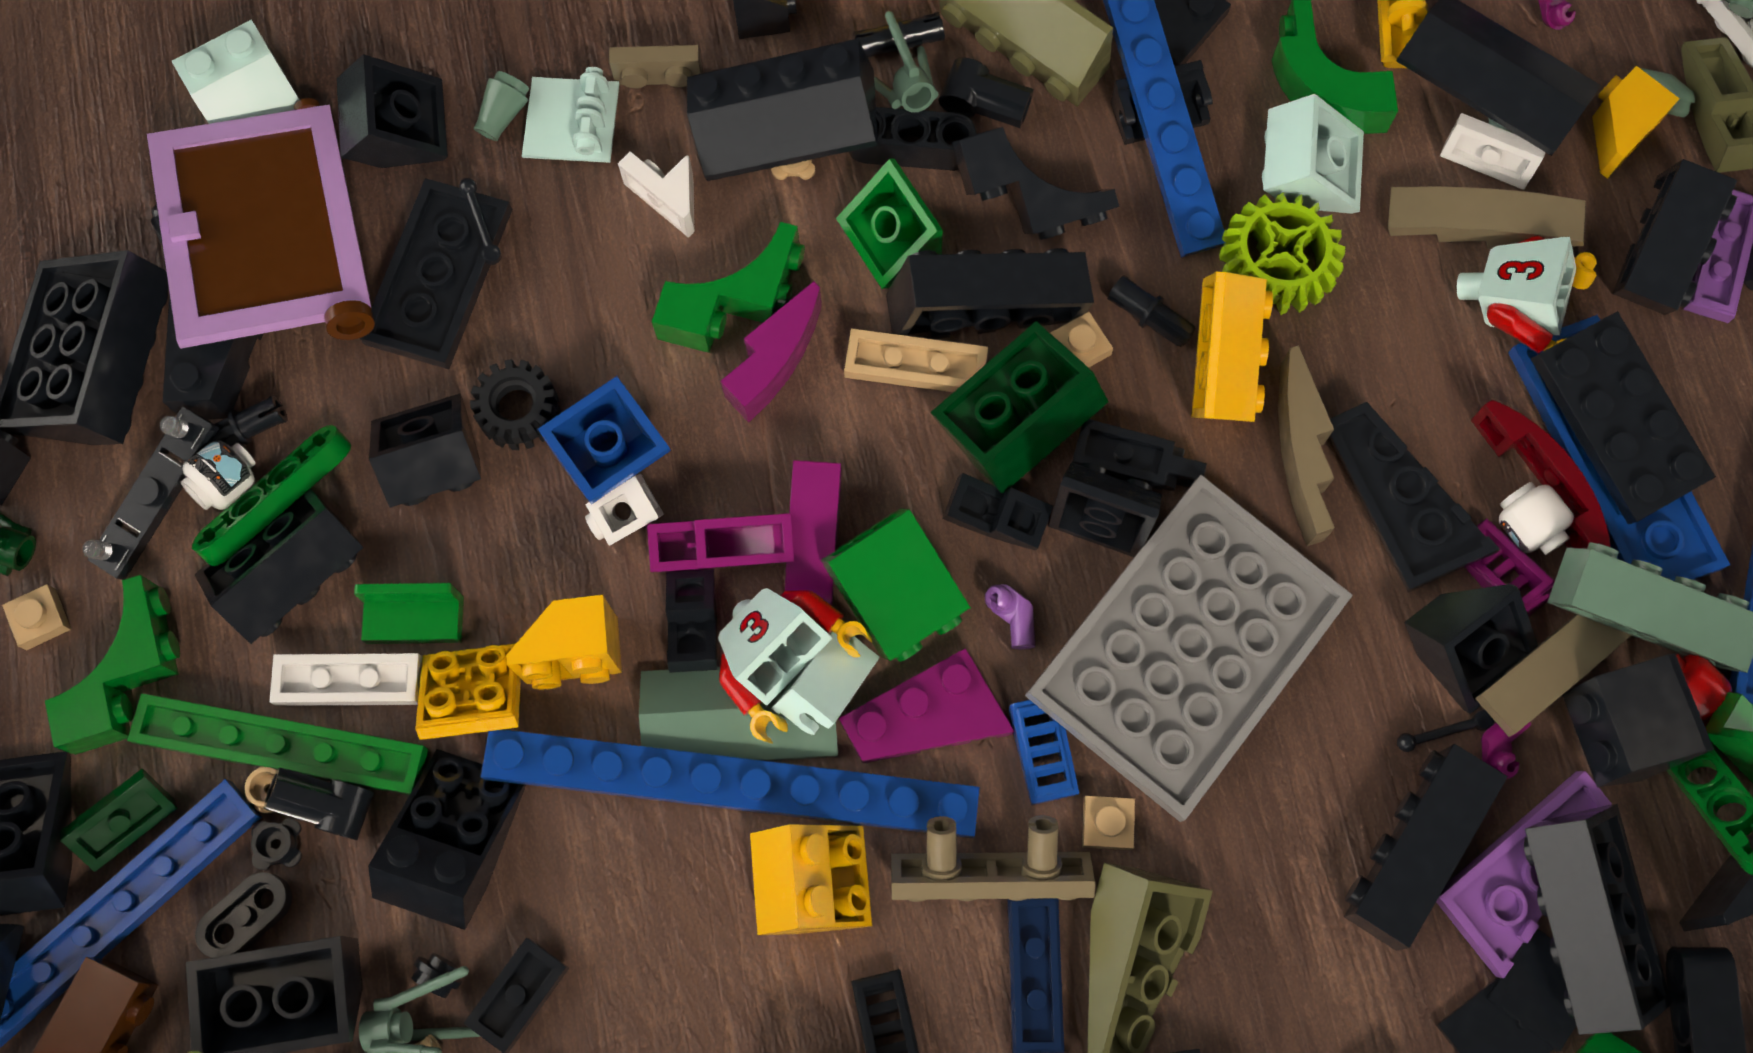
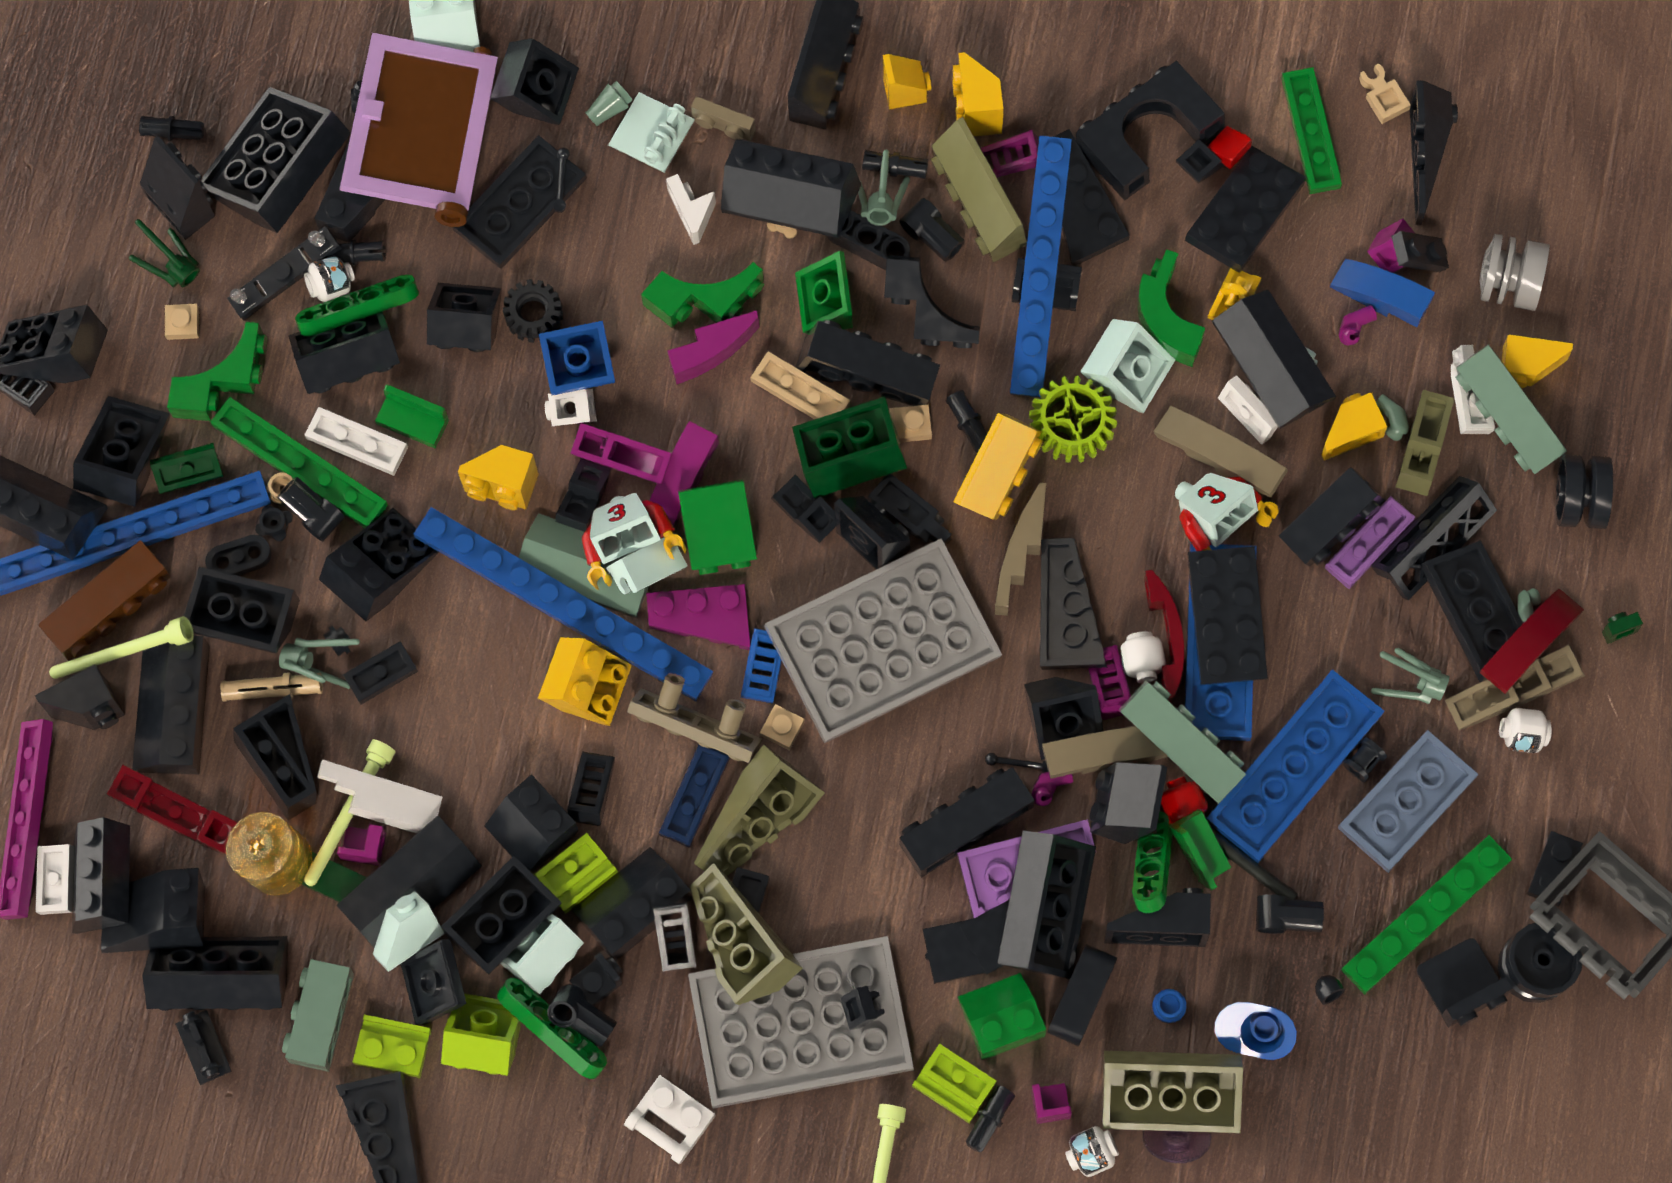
camera: 25 degrees right, 0 degrees up
(467, 692) = (426, 480): yellow tile -> none
(1014, 610) = (787, 574): medium lavender arm -> none

